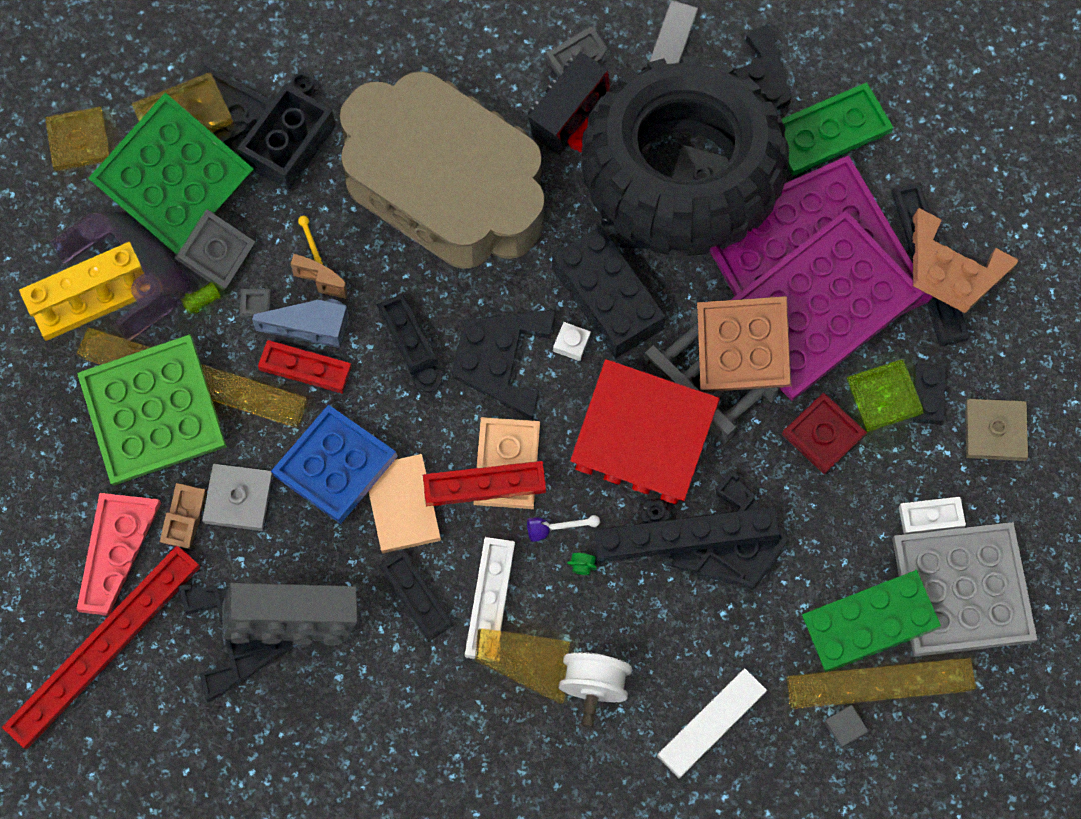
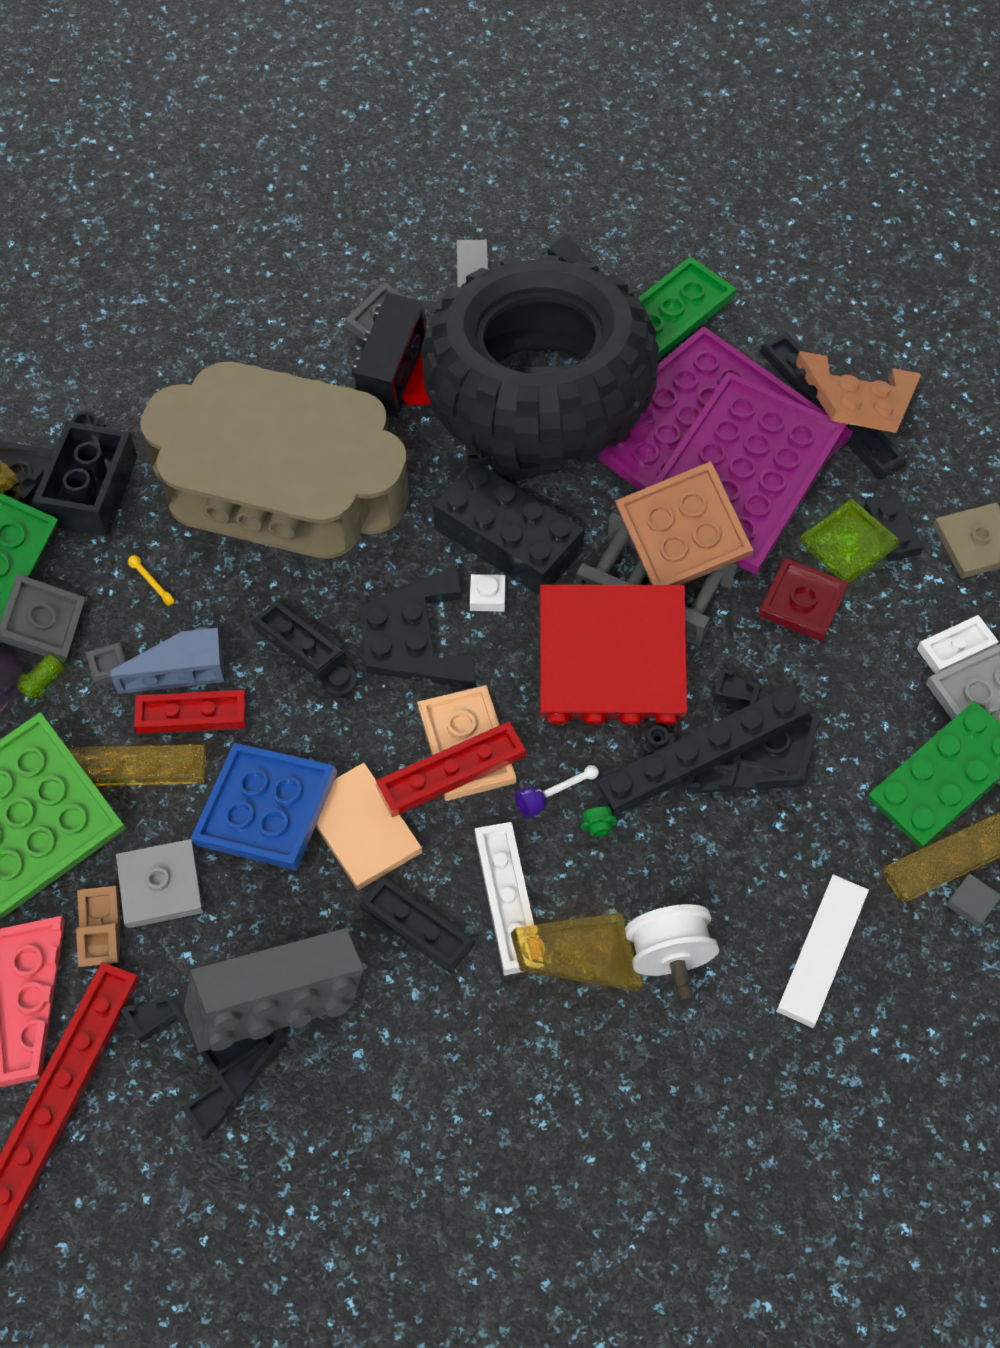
camera: 20 degrees left, 10 degrees down
(326, 280) = (184, 610): medium nougat slope -> none

